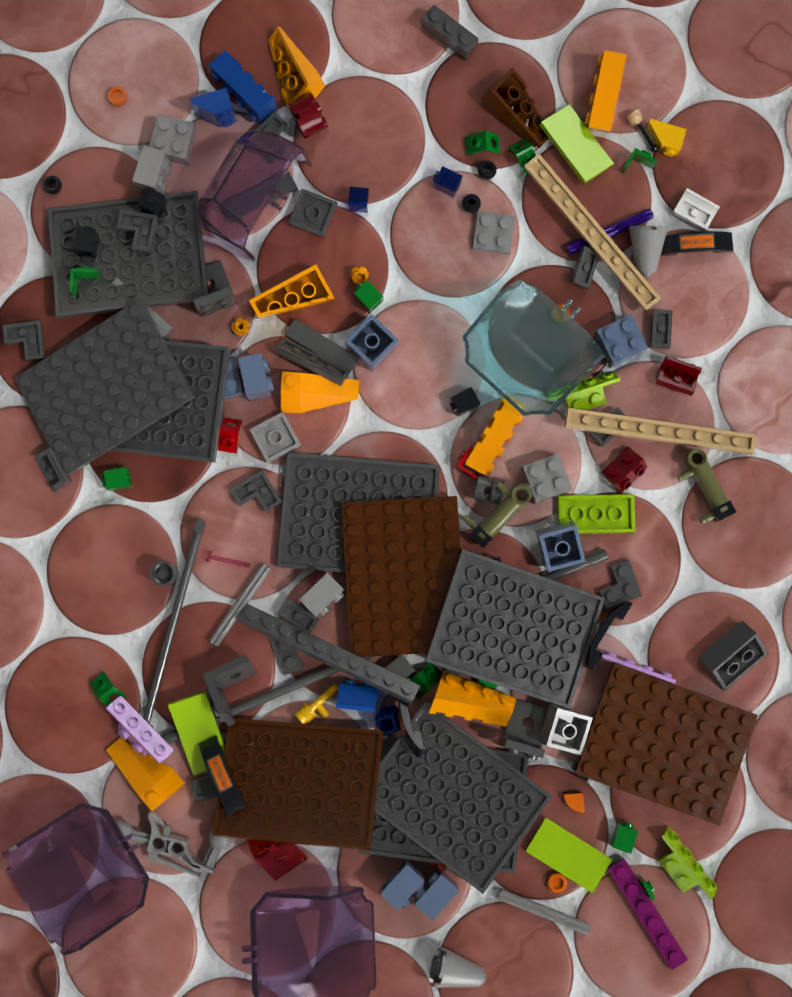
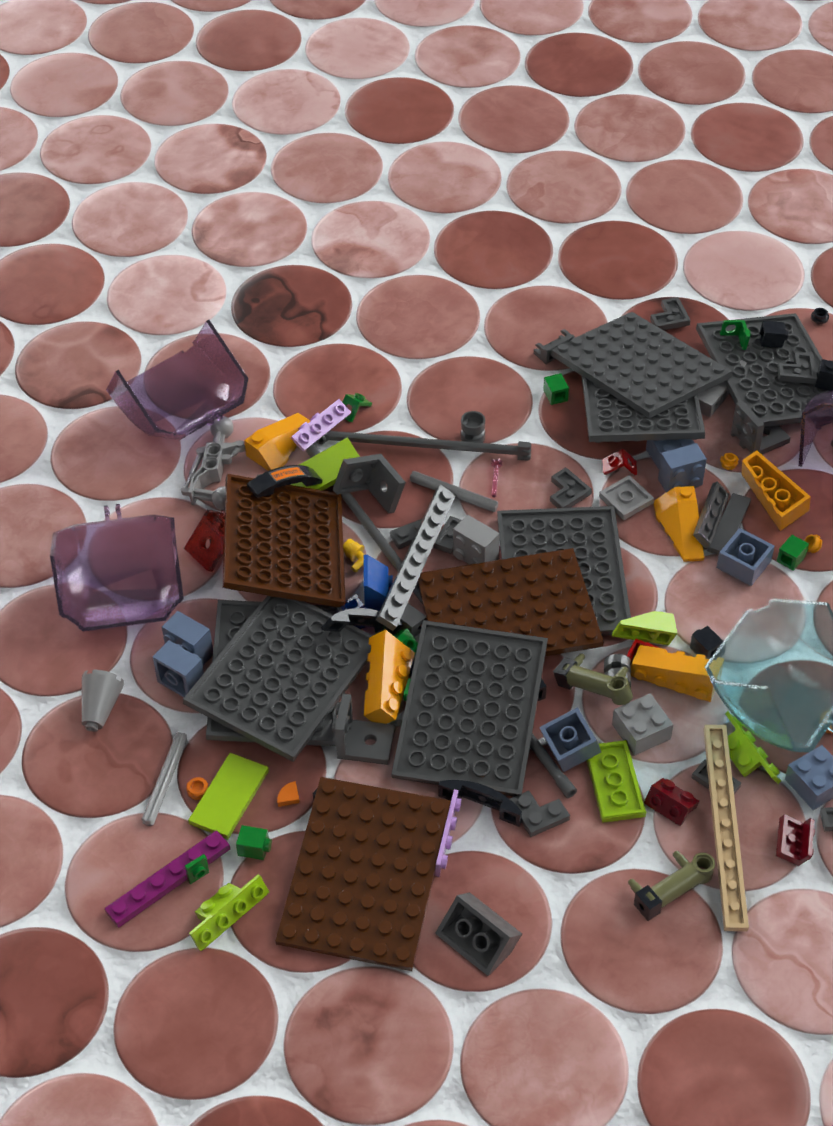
camera: 80 degrees right, 35 degrees down
(442, 447) = (649, 627): none -> lime slope
(565, 729) = (369, 763): light grey brick -> none

